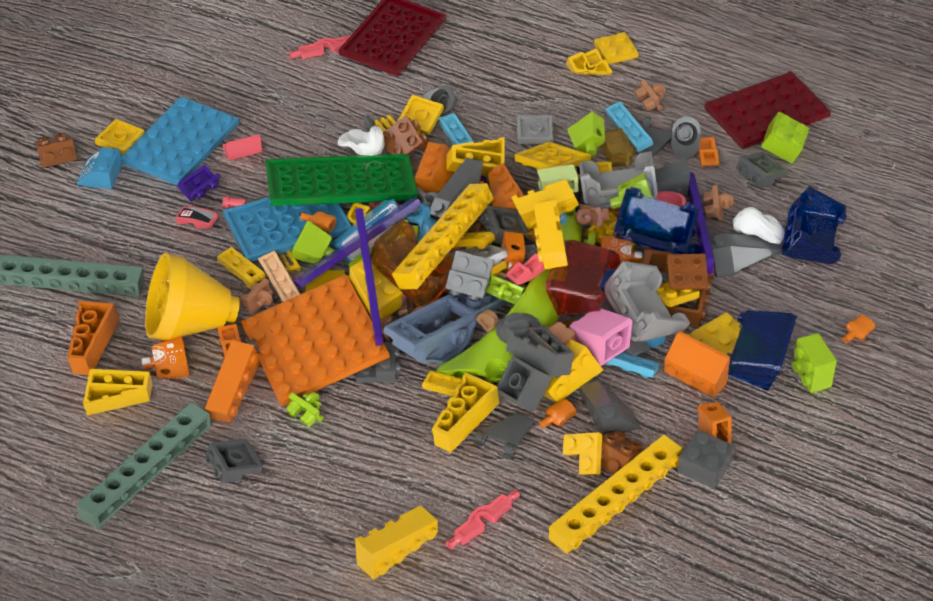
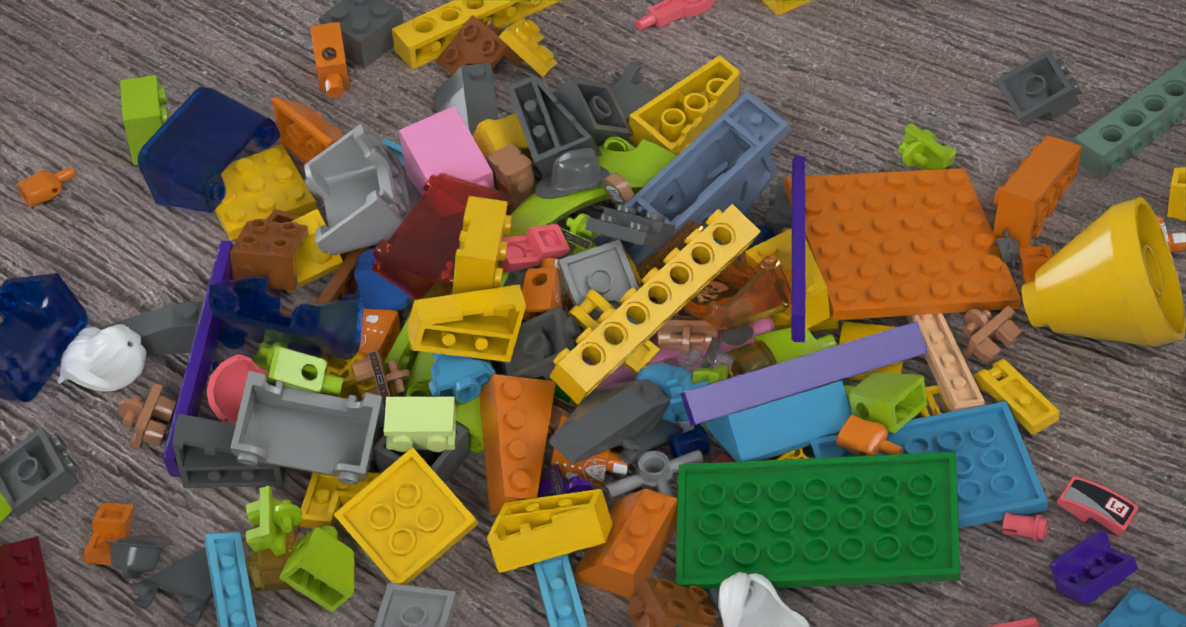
camera: 165 degrees left, 0 degrees up
(618, 138) = (275, 521): none -> lime hips

